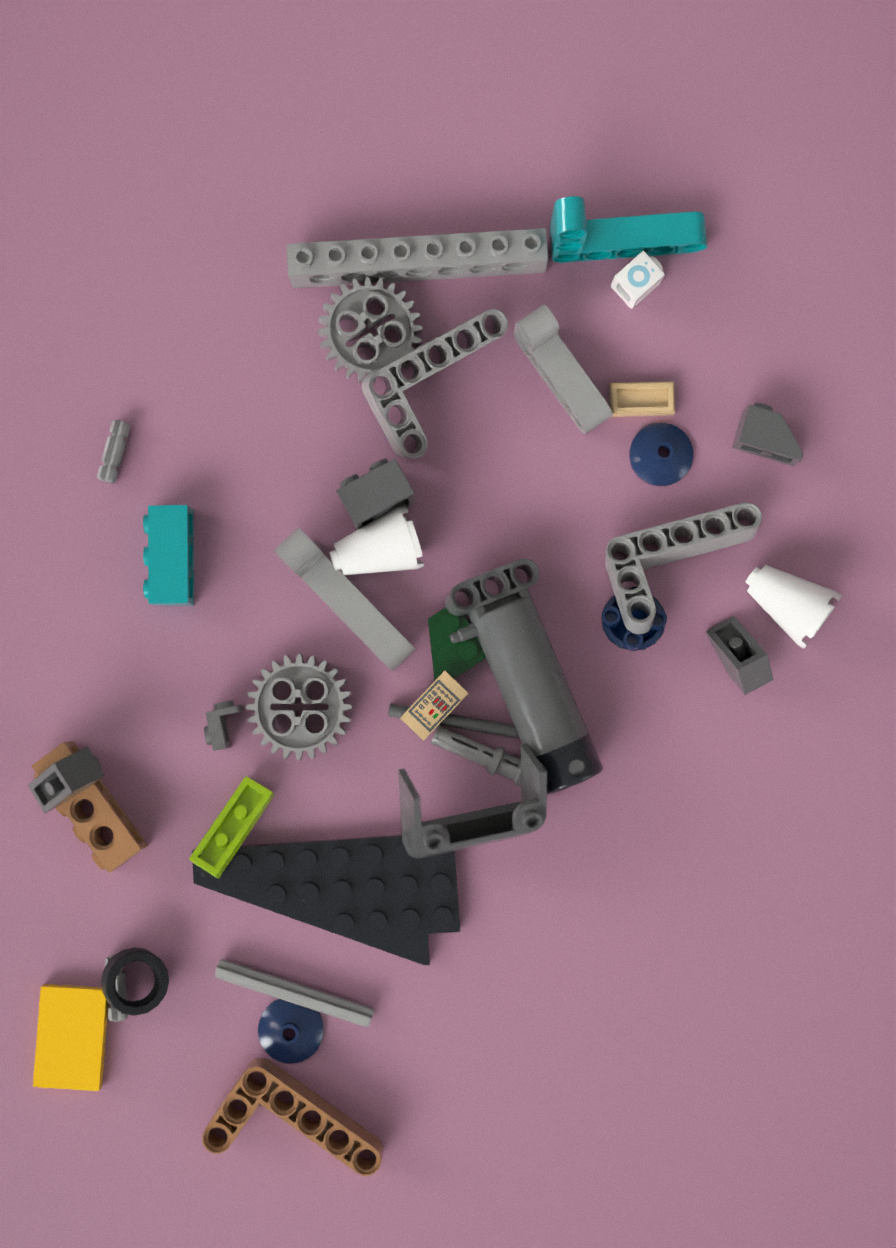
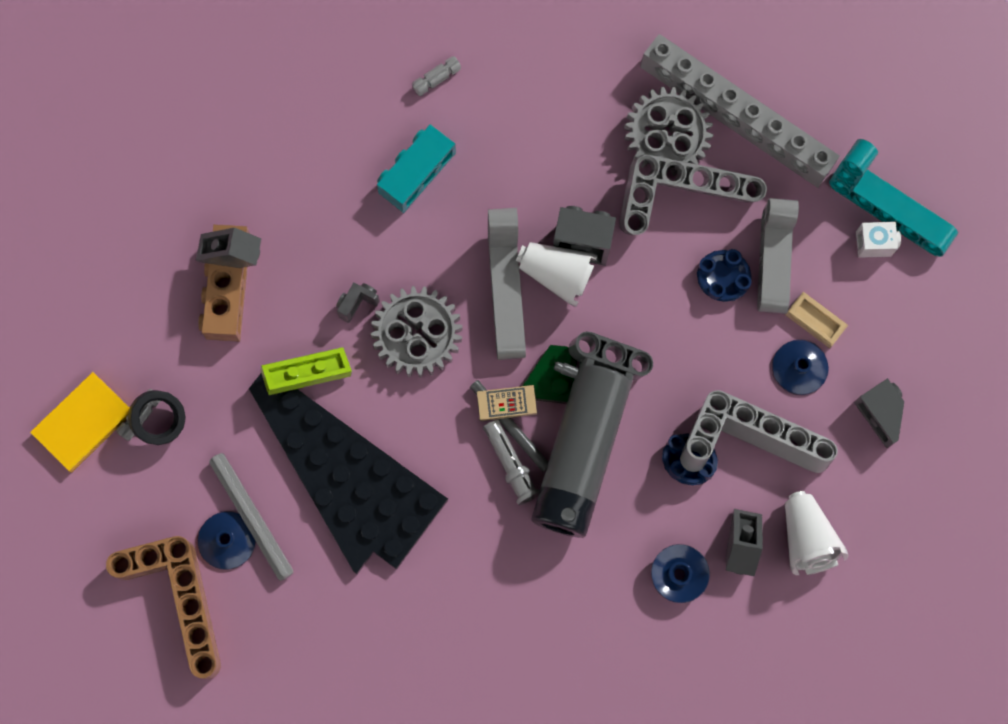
camera: 40 degrees right, 10 degrees down
(478, 826) = (431, 482): dark grey windscreen -> none
(528, 425) = (724, 275): none -> dark blue dish
(724, 729) = (691, 563): none -> dark blue dish

